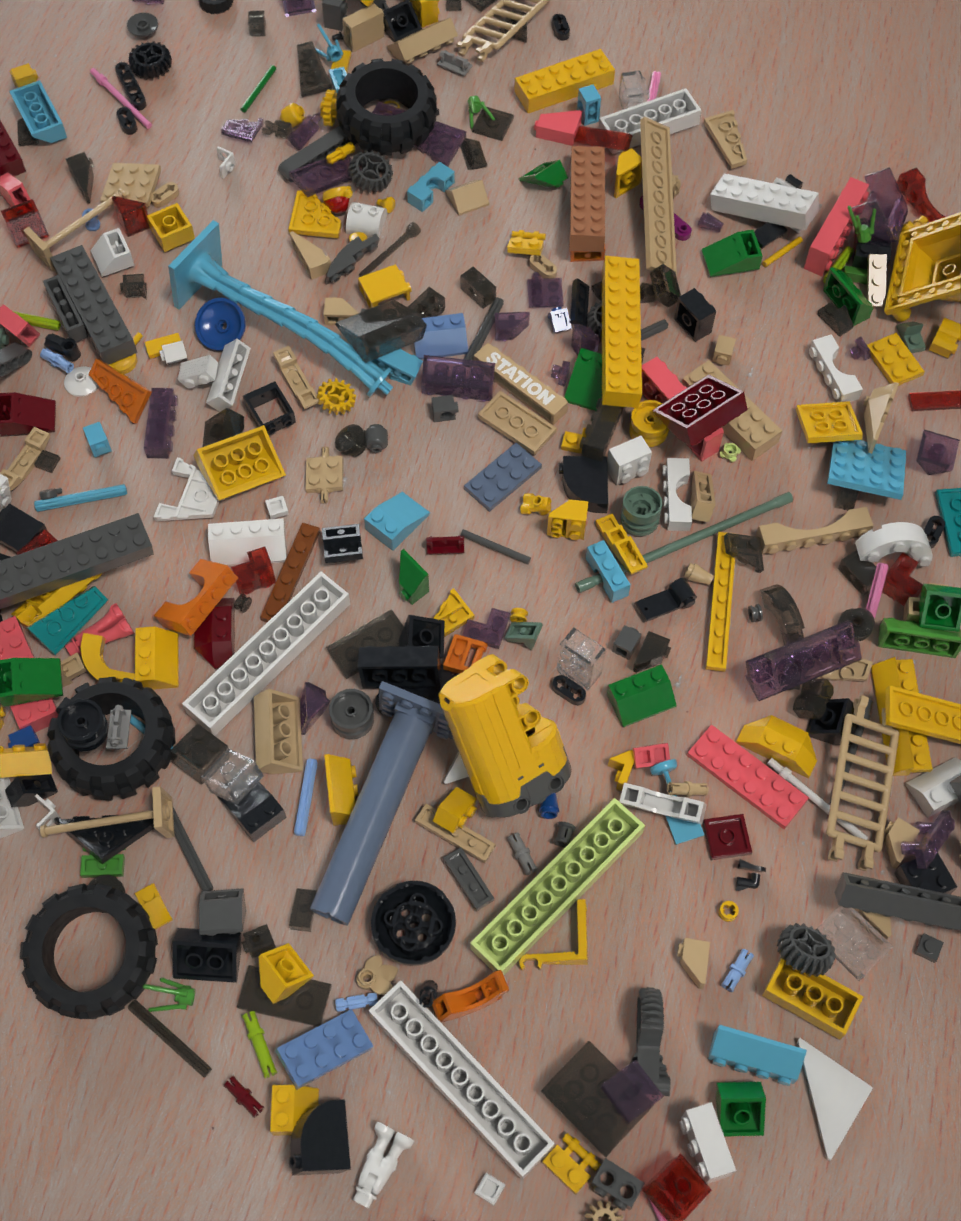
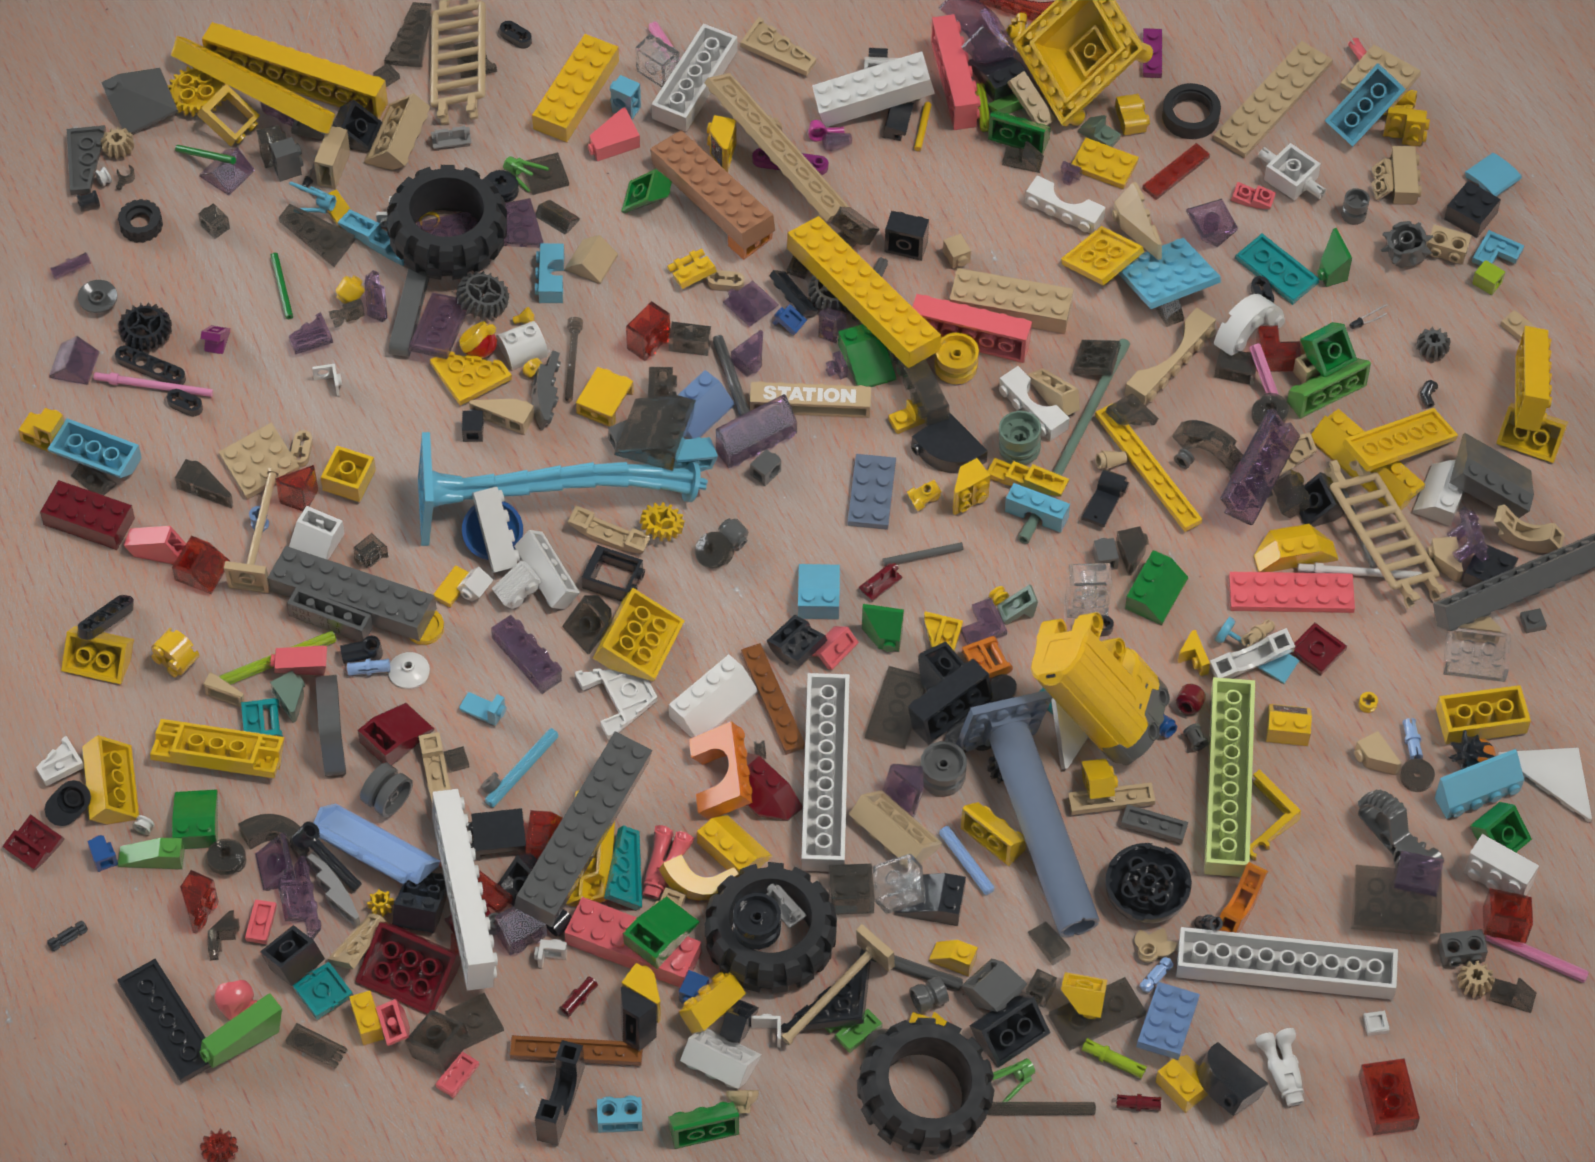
camera: 40 degrees left, 5 degrees down
(91, 56) = (74, 361): none -> clear purple slope
(123, 390) = (461, 649): orange wing -> none
(172, 879) = (931, 993): none -> dark grey wheel
(184, 92) = (215, 338): none -> magenta slope
(216, 322) = (494, 529): none -> white brick
(224, 865) = (954, 956): none -> yellow slope
(256, 573) = (750, 712): clear red brick -> none
(277, 507) = (706, 652): white plate -> none
(281, 250) = (472, 426): none -> black brick
(324, 474) = (717, 596): tan plate -> none
(329, 107) = (383, 258): yellow gear -> none
(337, 310) = (587, 445): tan slope -> none
(340, 153) = (437, 296): yellow axle -> none
(368, 568) = (839, 643): none -> coral panel
(451, 262) = (648, 331): none -> clear red brick
(454, 112) = (505, 183): none -> black piece
(517, 422) = (840, 436): tan plate -> none
(522, 853) = (1176, 775): light grey pin -> none
(566, 1168) = (1418, 967): yellow plate -> none
(587, 801) = (1190, 699): none -> dark red head
(603, 138) = (673, 122): clear red tile -> none
(629, 460) = (971, 401): white brick -> none
(647, 879) = (1289, 725): none -> yellow slope
(651, 755) = (1208, 627): coral slope -> none
(701, 409) = (999, 314): dark red slope -> none
(705, 206) = (818, 129): none -> dark pink bar
(711, 1012) = (1420, 767): none -> clear smoke piece
(730, 447) = (1041, 333): yellowish green plate -> none
(733, 254) = (886, 157): green slope -> none
(754, 882) = (1362, 672): black piece -> none
(757, 493) = (1096, 357): none -> clear smoke tile
(774, 1022) = (1472, 750): none -> black hair
(806, 949) = (1453, 681): dark grey gear -> none
(863, 231) = (985, 62): bright green plant -> none

